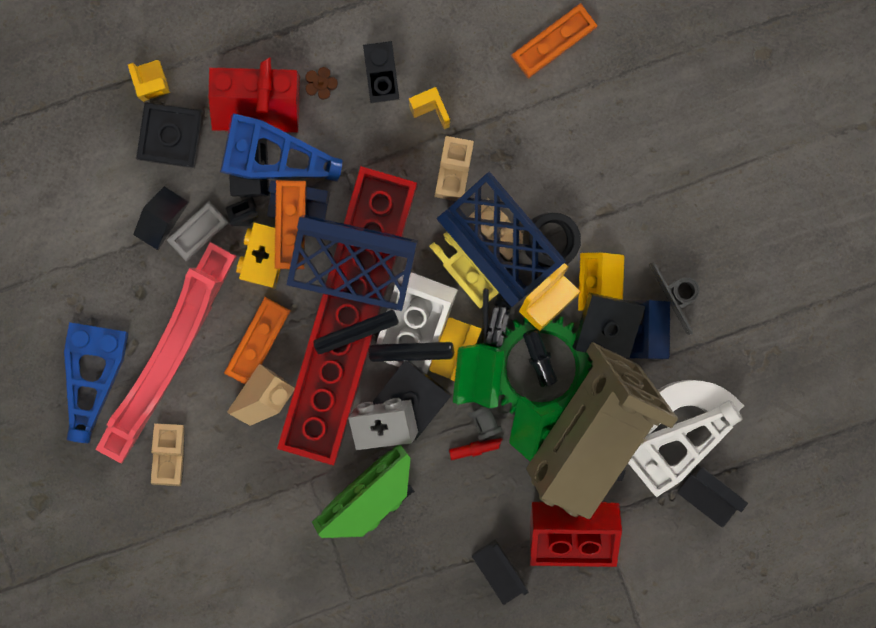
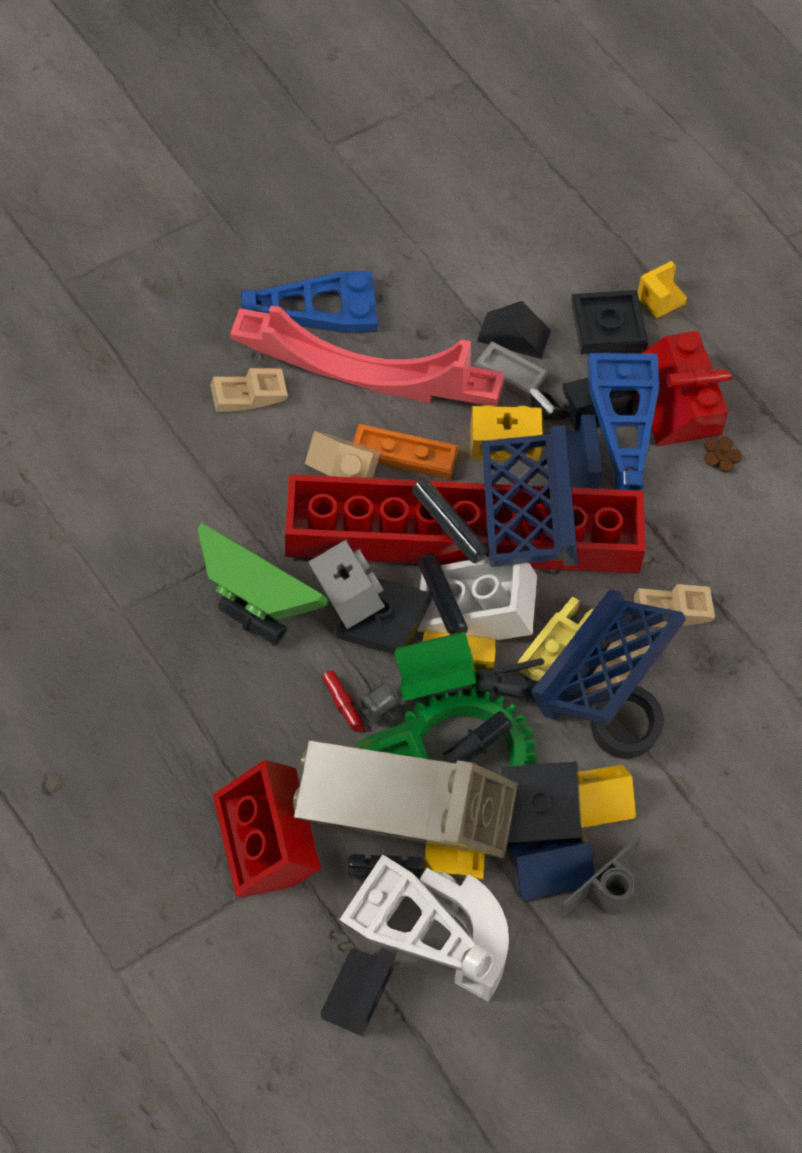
camera: 75 degrees right, 30 degrees down
(289, 207) = (582, 432): orange tile -> none
(381, 72) = (761, 500): black slope -> none
(427, 102) = (738, 552): yellow panel -> none
(499, 572) = (197, 759): black panel -> none
(549, 298) = (557, 727): yellow panel -> none

